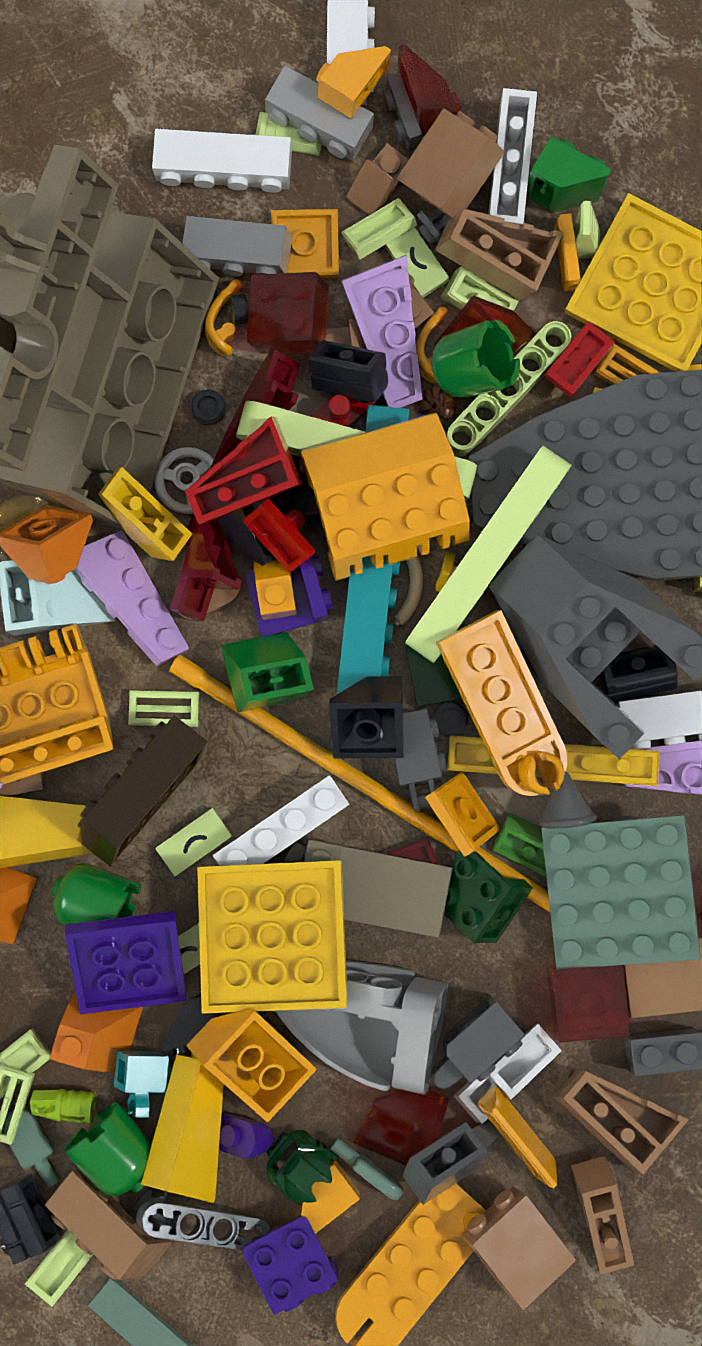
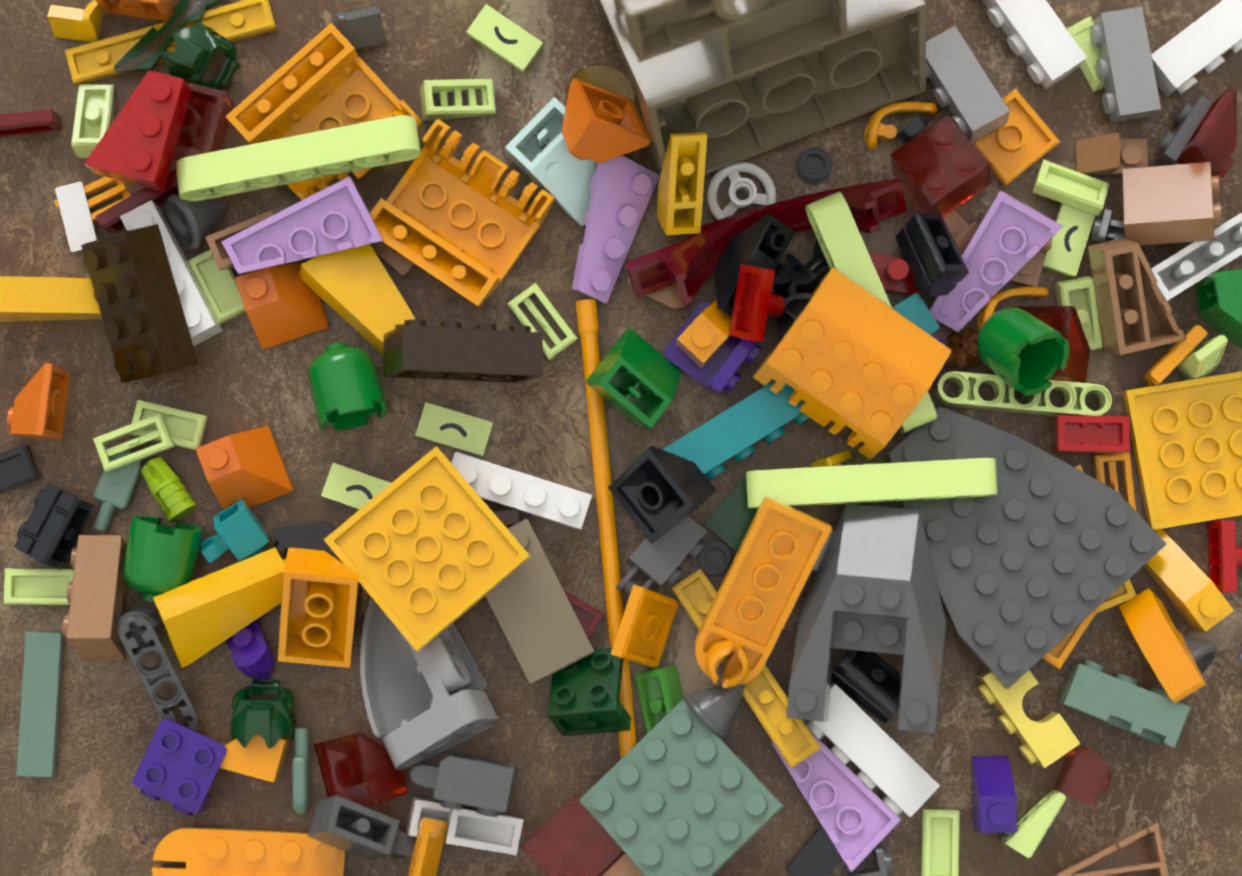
camera: 50 degrees right, 0 degrees up
(126, 962) = (317, 449): dark purple plate -> none
(248, 474) = (779, 239): red wedge -> none
(351, 78) = (1174, 68): light orange slope -> none
(414, 592) = (795, 449): tan piece -> none

